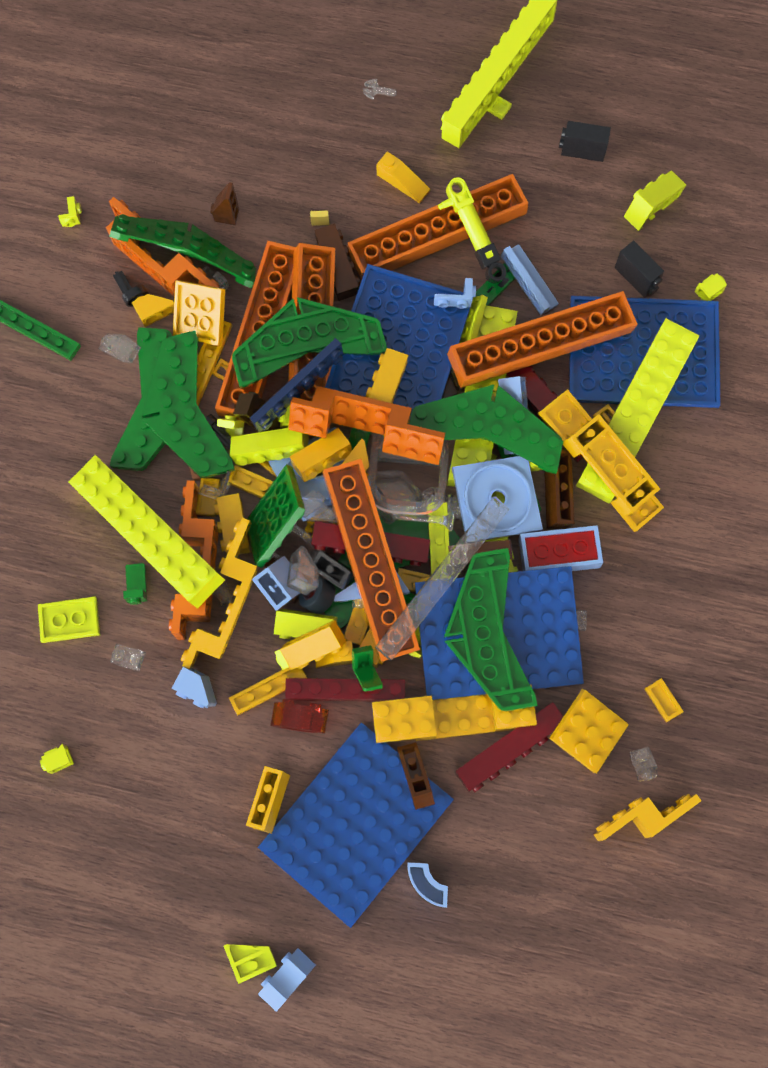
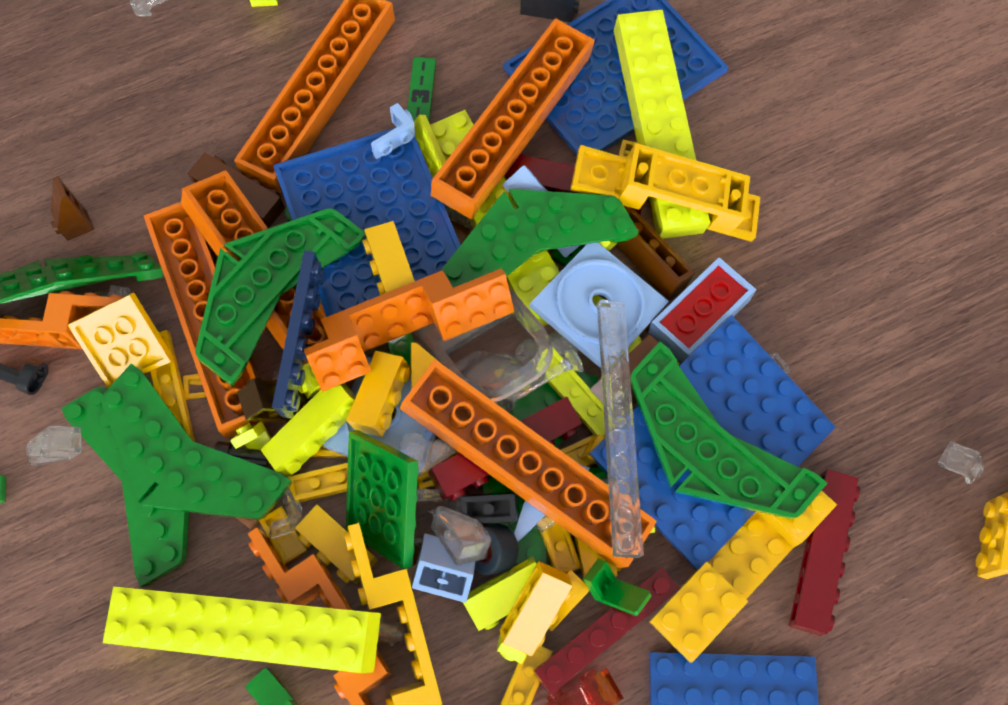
camera: 40 degrees left, 5 degrees down
(152, 308) = (63, 376): yellow slope -> none
(319, 217) = (183, 159): light yellow tile -> none
(401, 177) = (237, 65): yellow slope -> none
(416, 776) = (761, 664): reddish brown slope -> none
(485, 250) = (388, 75): neon yellow piece -> none
(529, 279) = (448, 76): light blue panel -> none
(589, 731) = (885, 471): yellow plate -> none
(664, 700) = (921, 383): yellow tile -> none

